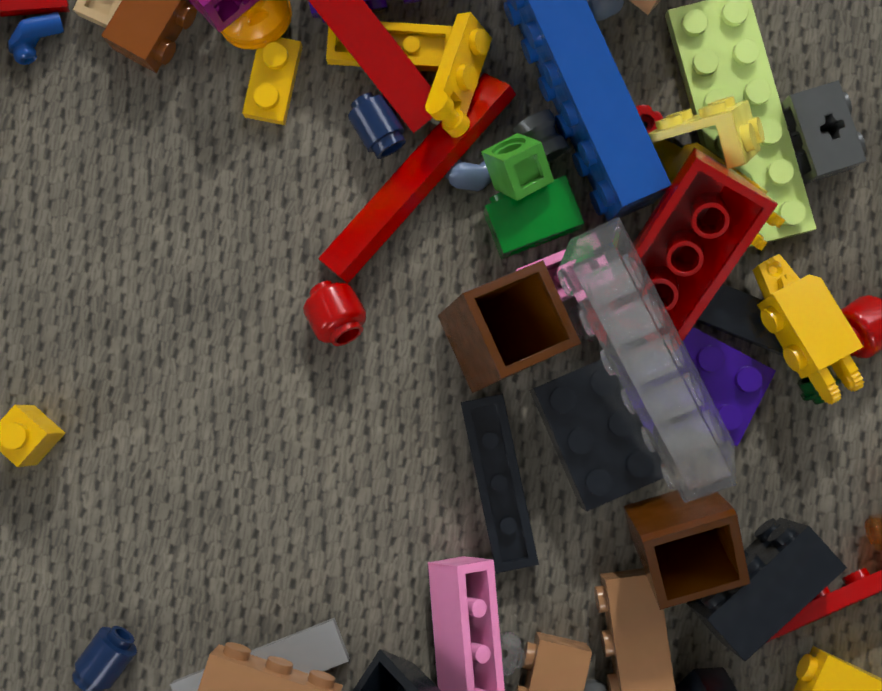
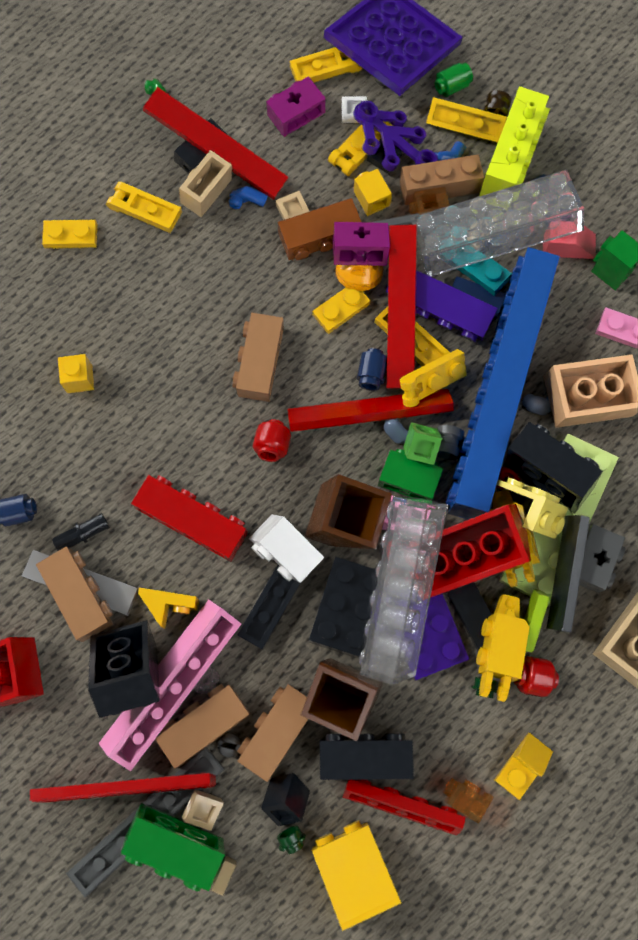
camera: 40 degrees right, 10 degrees down
(208, 615) = (81, 532): none -> black axle
(228, 224) = (259, 357): none -> medium nougat brick
(319, 488) = (189, 517): none -> red brick
(373, 614) = (160, 601): none -> yellow slope
(457, 428) = (287, 547): none -> white brick
(699, 63) = (553, 466): none -> black brick
(811, 178) = (568, 573): none -> black tile
(811, 255) = (535, 615): none -> lime tile

